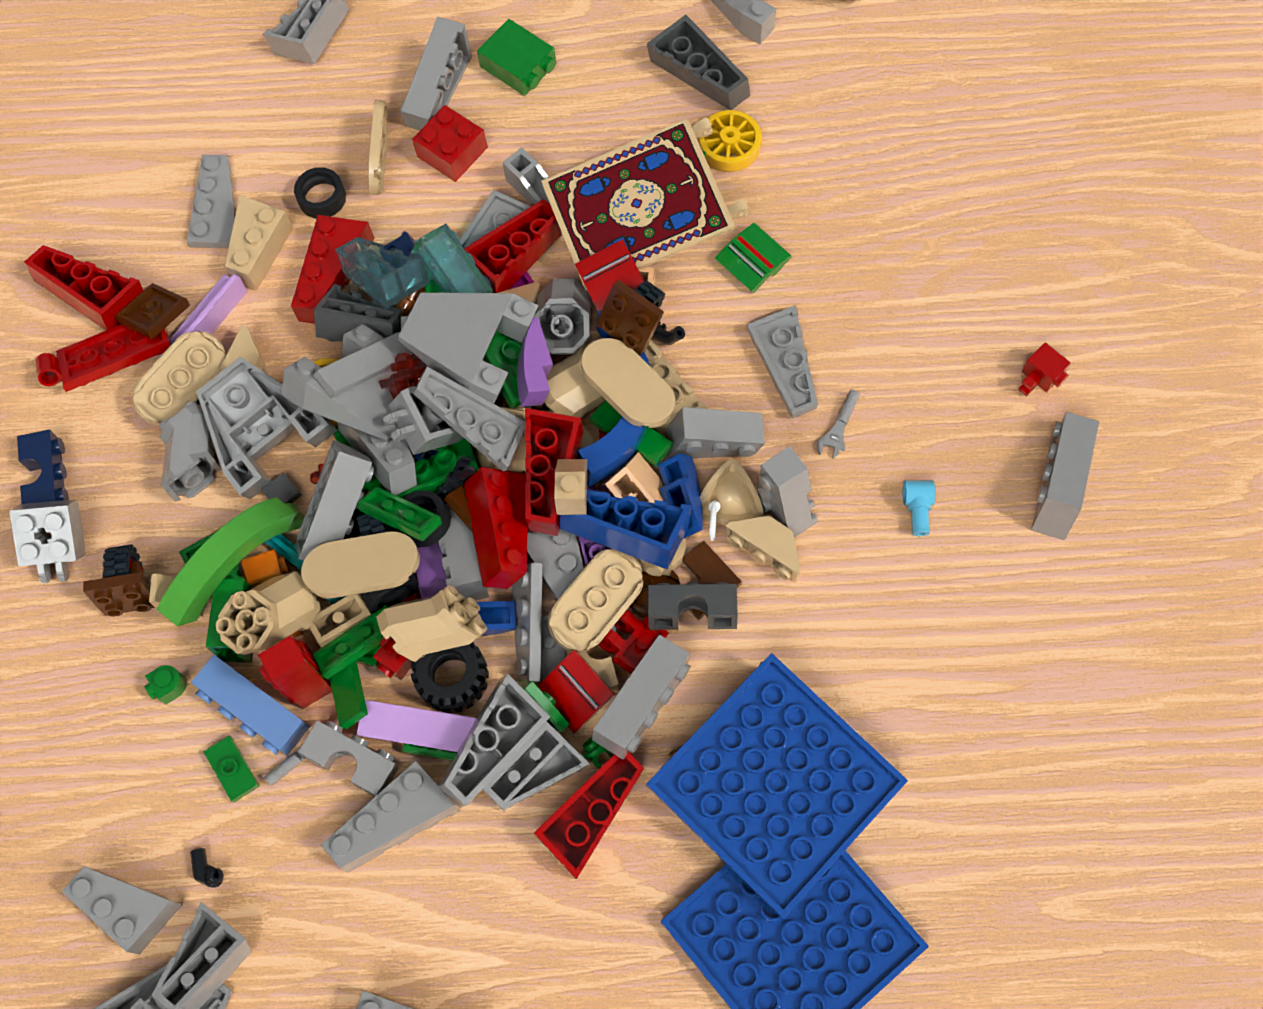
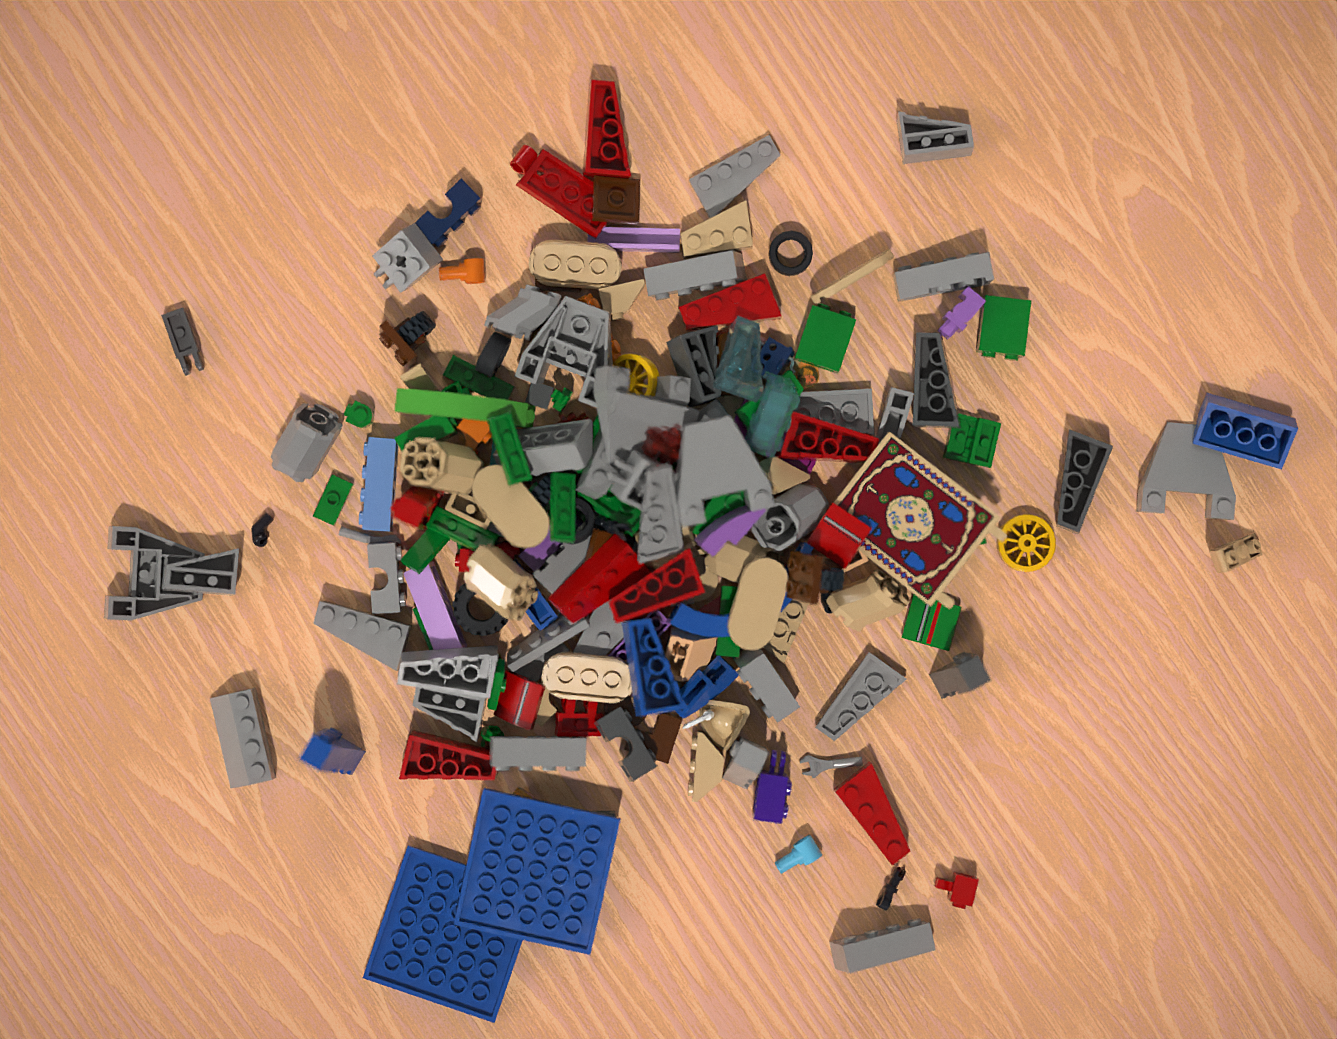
camera: 50 degrees right, 20 degrees up
(111, 486) = (470, 271): none -> orange pin
(121, 909) = (205, 494): light grey wedge -> none
(147, 755) = (306, 442): none -> light grey brick
(205, 506) = (493, 354): none -> black tyre
(272, 279) = (695, 274): none -> light grey wedge
(297, 468) = (561, 398): none -> green plate
(300, 528) = (509, 448): none -> green tile
(419, 203) = (825, 338): none -> green brick
(450, 143) = (892, 327): red brick -> none
(477, 76) = (961, 313): none -> medium lavender hips
(494, 935) = (331, 752): none -> blue wedge
(541, 136) = (933, 389): none -> dark grey wedge
(571, 487) = (648, 620): tan slope -> none
(601, 133) = (974, 442): none -> green slope
(694, 292) = (868, 600): none -> tan brick
(822, 244) = (960, 676): none -> dark grey wedge
(837, 489) = (771, 792): none -> dark purple brick
(915, 406) = (869, 805): none -> red wedge
(1014, 446) = (886, 897): none -> black piece

